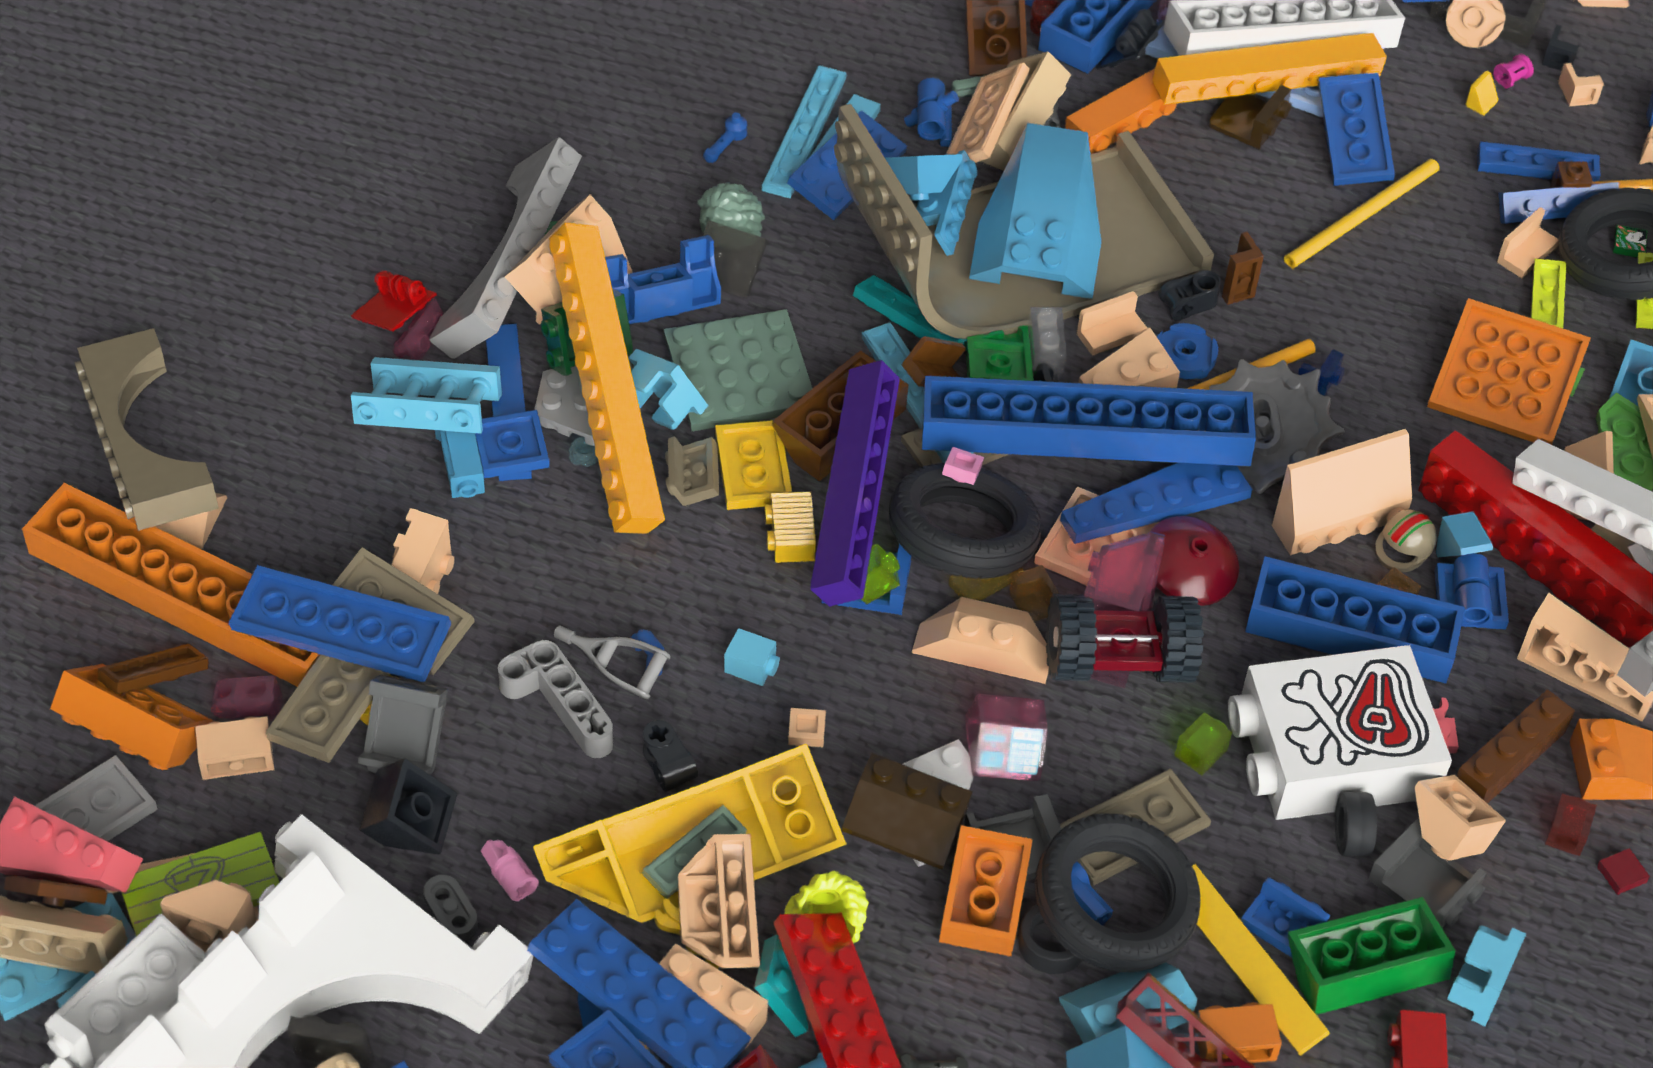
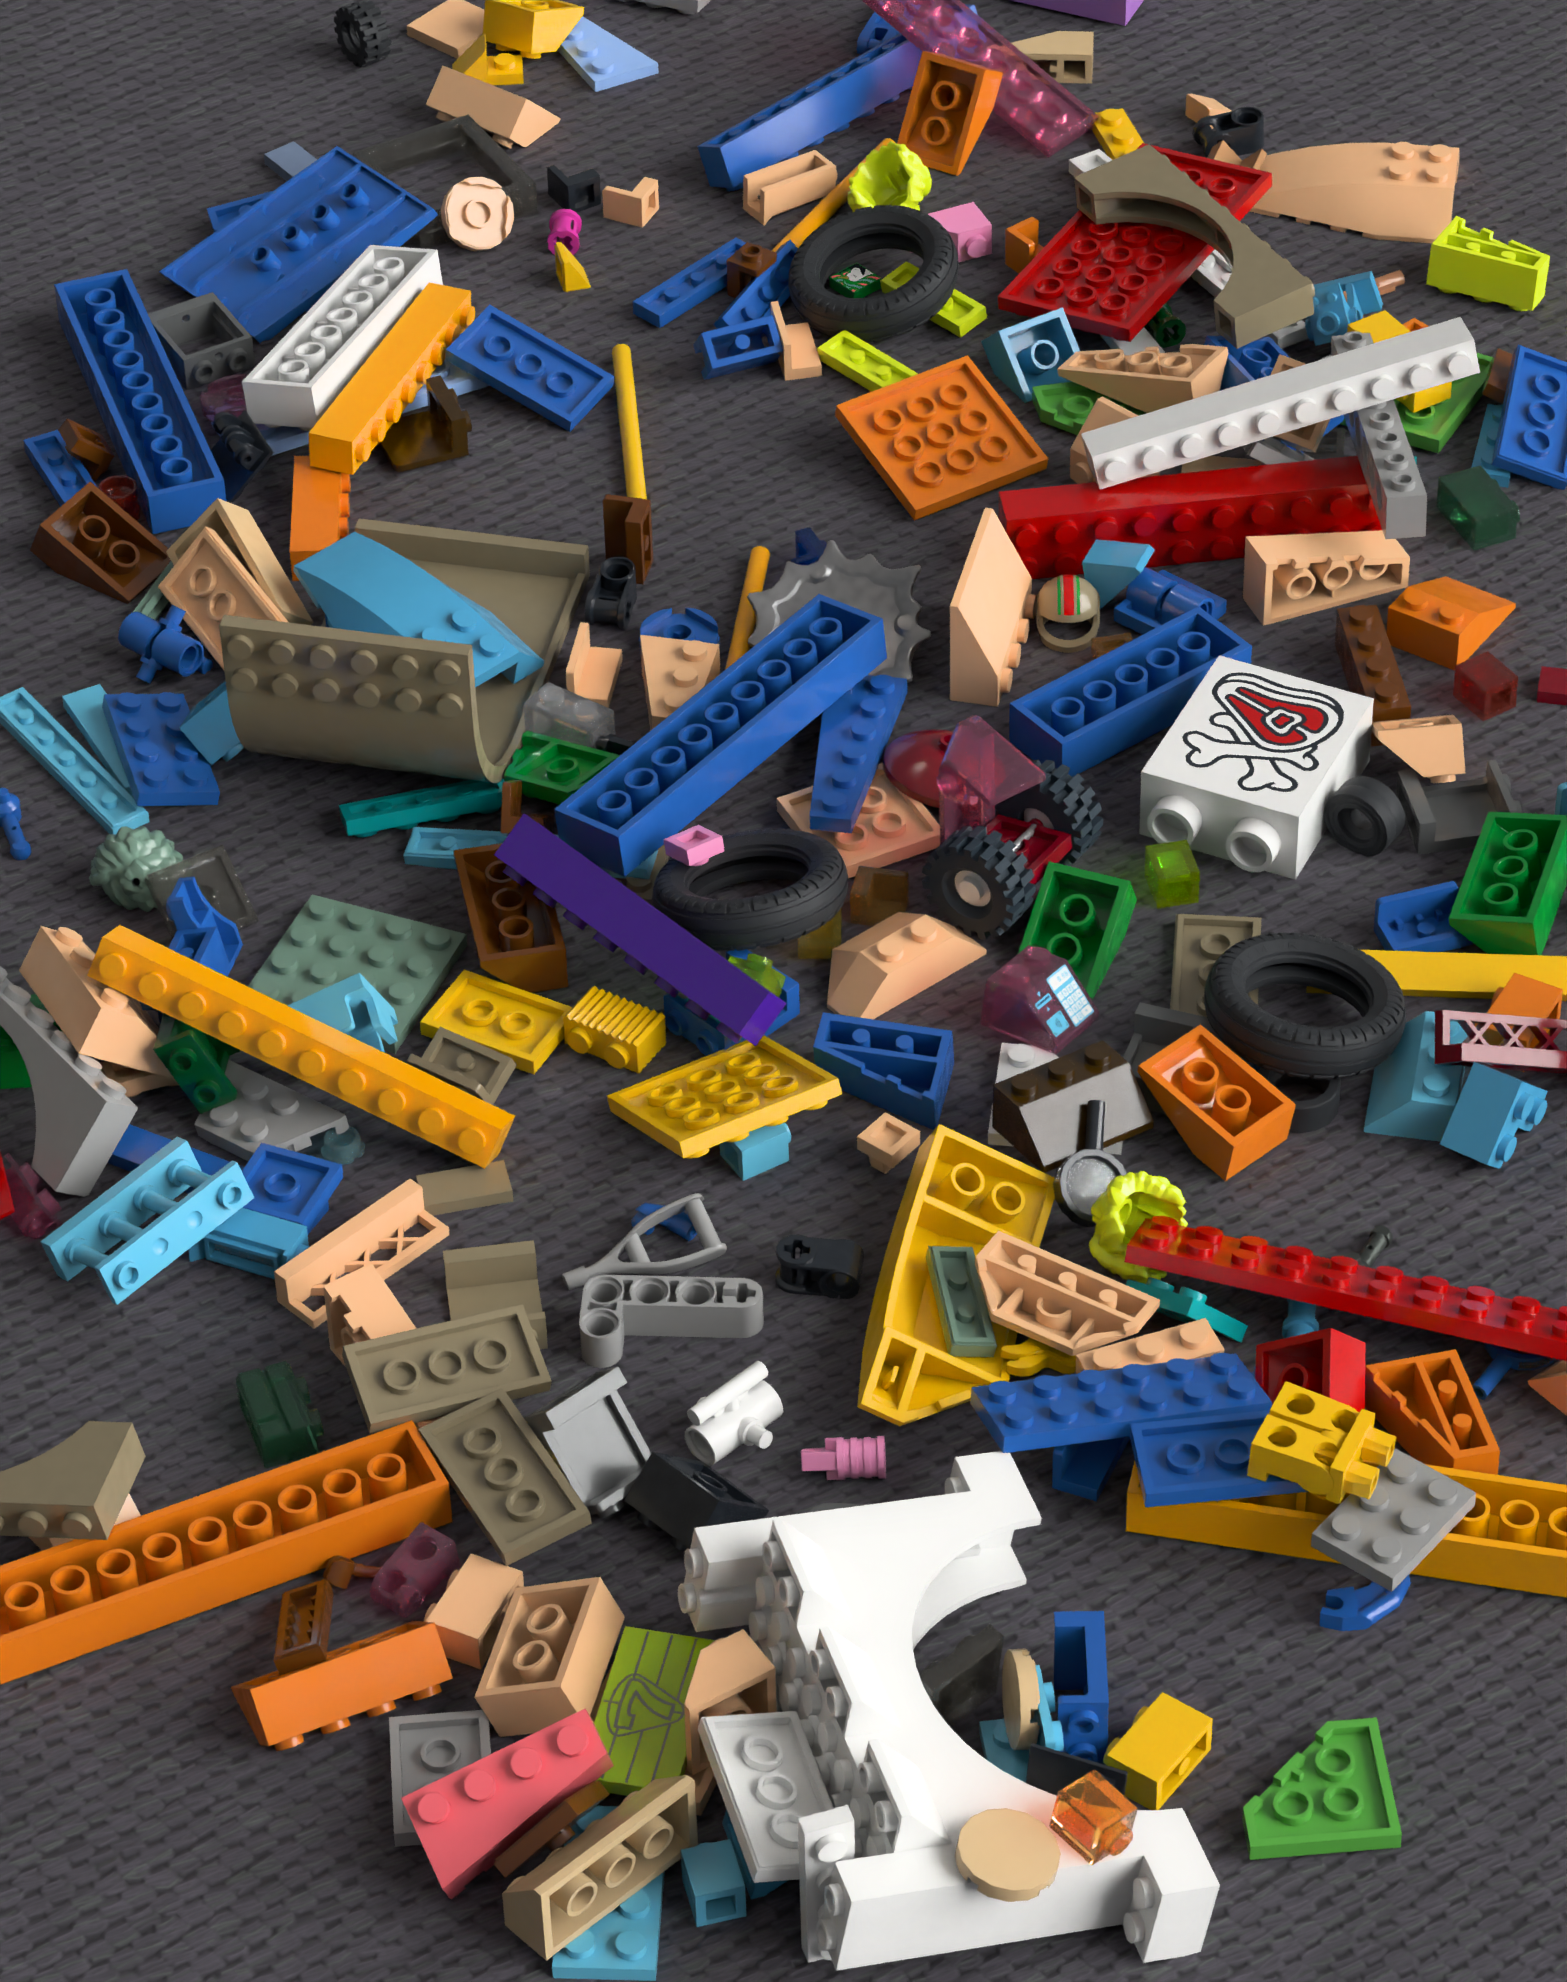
camera: 50 degrees left, 10 degrees down
(207, 807) = (549, 1655): none -> light nougat brick
(226, 661) = (340, 1570): none -> reddish brown hand
(328, 551) = (278, 1414): none -> clear green brick
(340, 623) = (429, 1413): blue plate -> none
(493, 785) = (734, 1416): none -> white pin
(498, 505) = (356, 1242): none -> light nougat fence
(510, 606) = (495, 1279): none -> dark tan panel
(597, 533) = (465, 1188): none -> dark tan tile
(762, 616) = (724, 1096): none -> yellow plate
(864, 858) = (1087, 1173): none -> piece
(875, 689) = (888, 1064): none -> blue wedge
(1098, 720) = (1081, 920): none -> green slope
(1485, 217) = (738, 347): none -> blue brick

